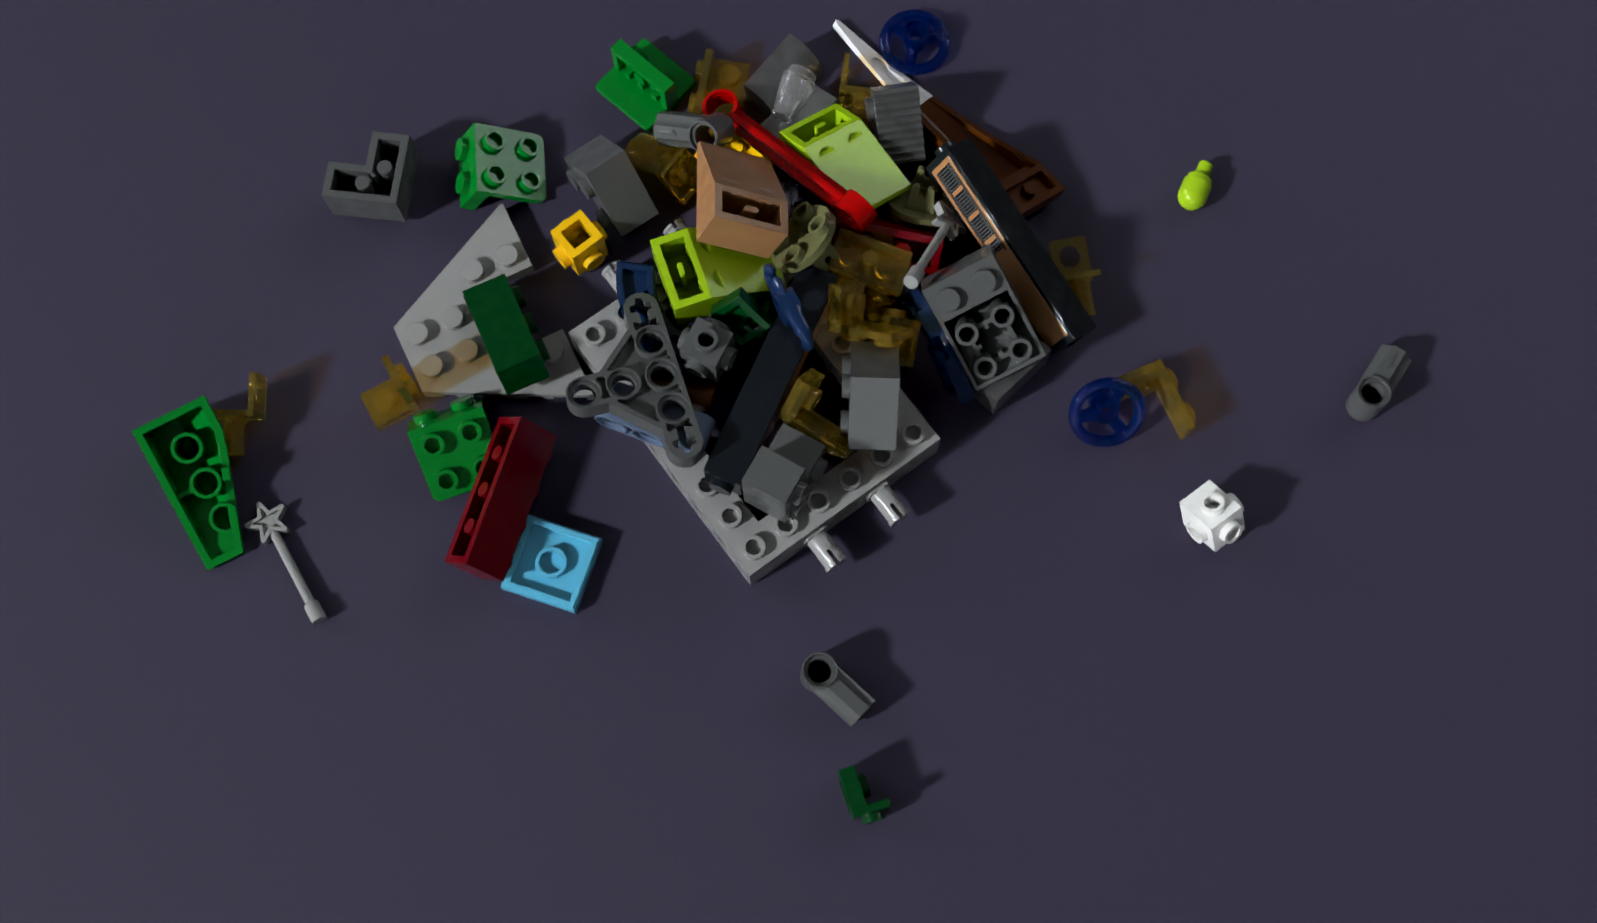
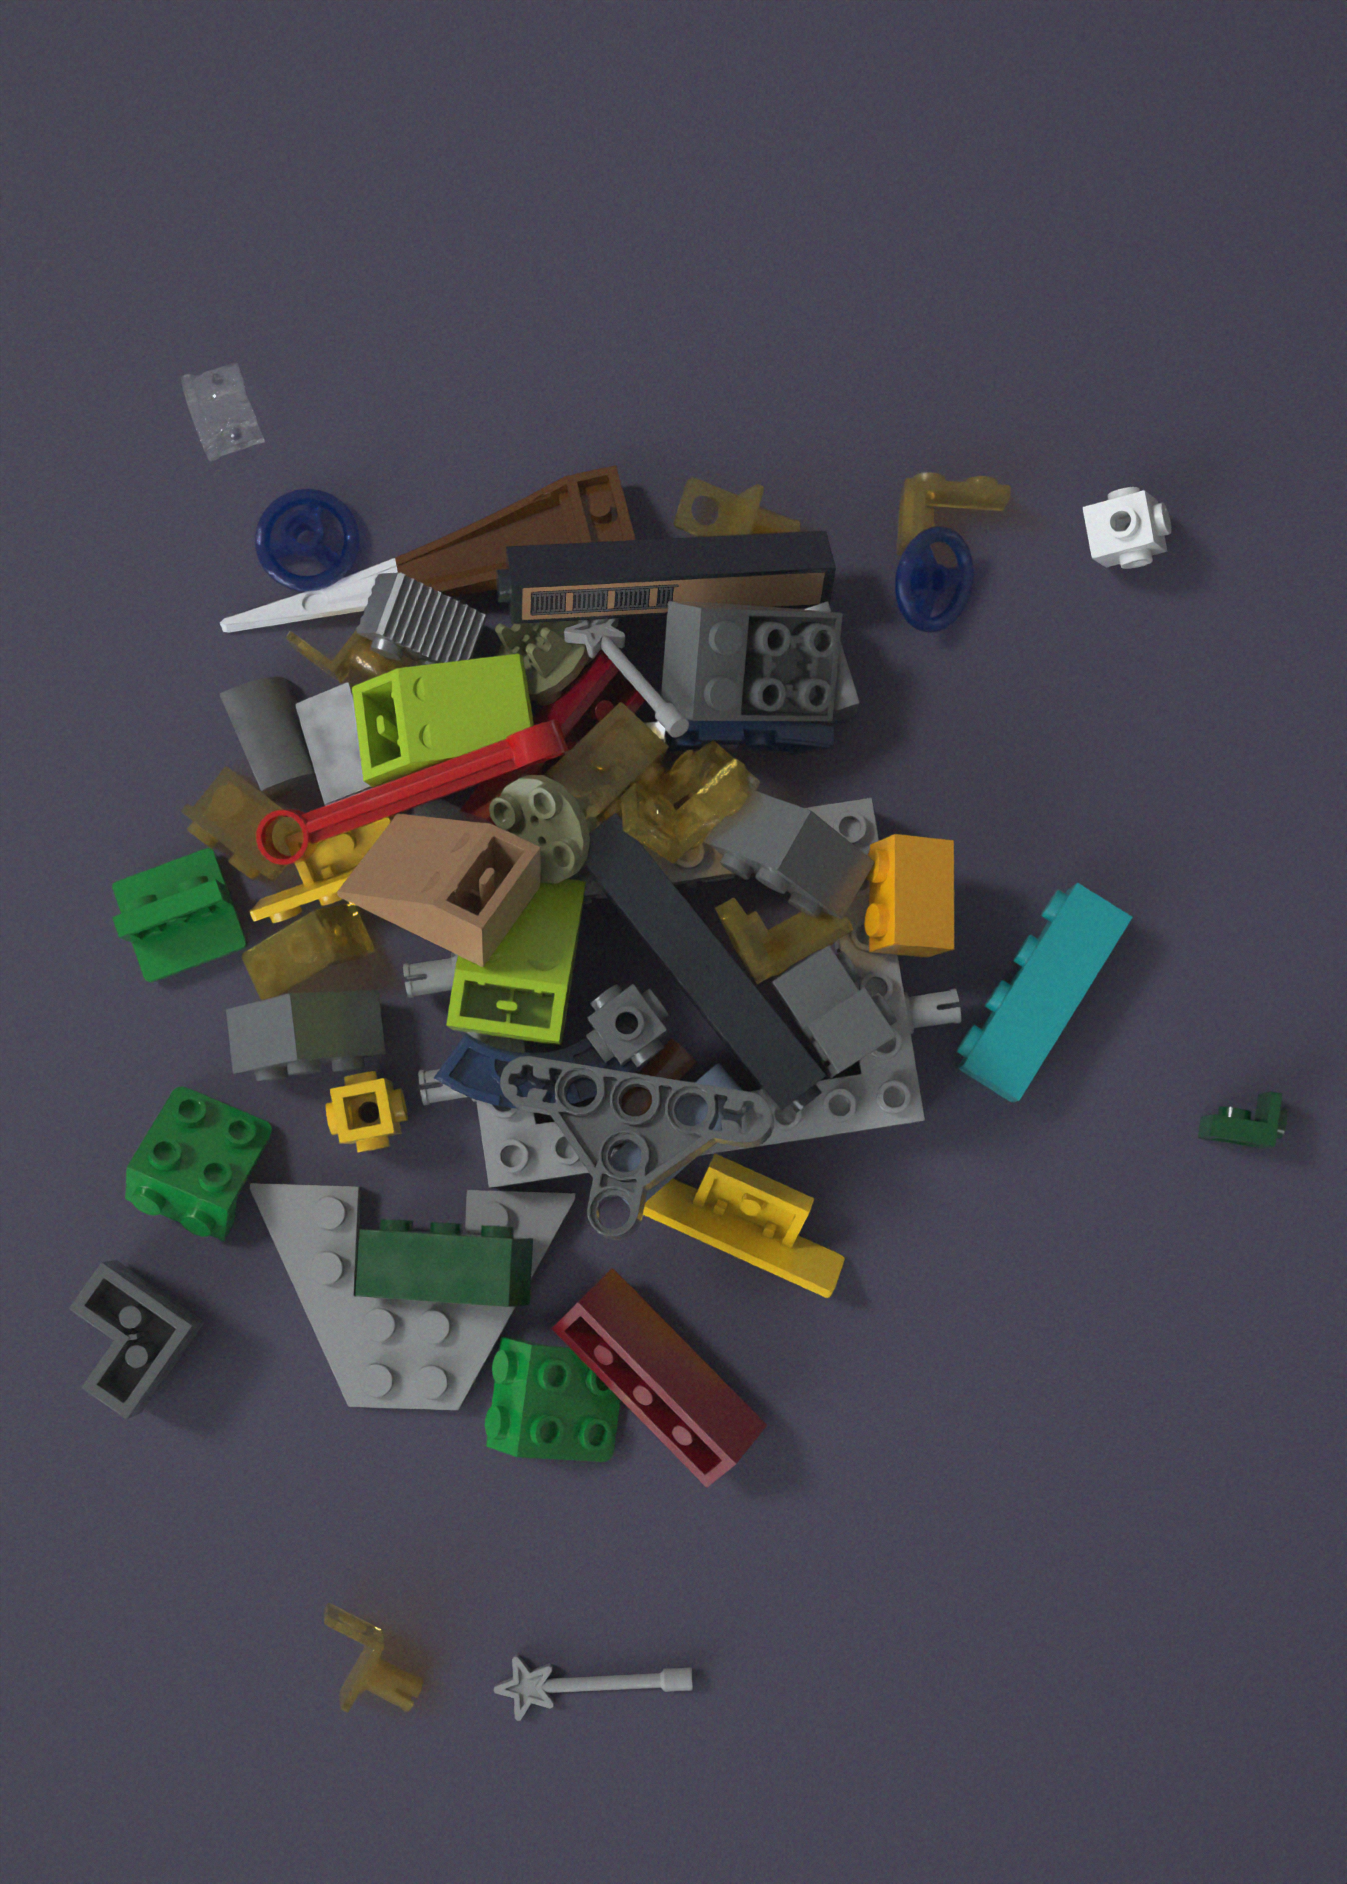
camera: 65 degrees left, 10 degrees up
(194, 470) = (415, 1755): green wedge -> none
(393, 398) = (445, 1453): clear yellow bracket -> none
(552, 564) = (768, 1351): medium azure tile -> none
(629, 505) = (751, 1221): none -> yellow bracket
(688, 129) = (302, 888): dark grey piece -> none
(744, 315) = (605, 957): dark green bracket -> none
(788, 307) = (632, 896): dark blue piece -> none
(793, 92) = (309, 733): clear cone -> none
(839, 691) = (1104, 1085): dark grey piece -> none
(877, 618) = (1043, 992): none -> teal brick
(888, 487) = (911, 896): none -> light orange brick
(1196, 187) = (697, 306): lime cylinder -> none
(1377, 382) = (1060, 238): dark grey piece -> none

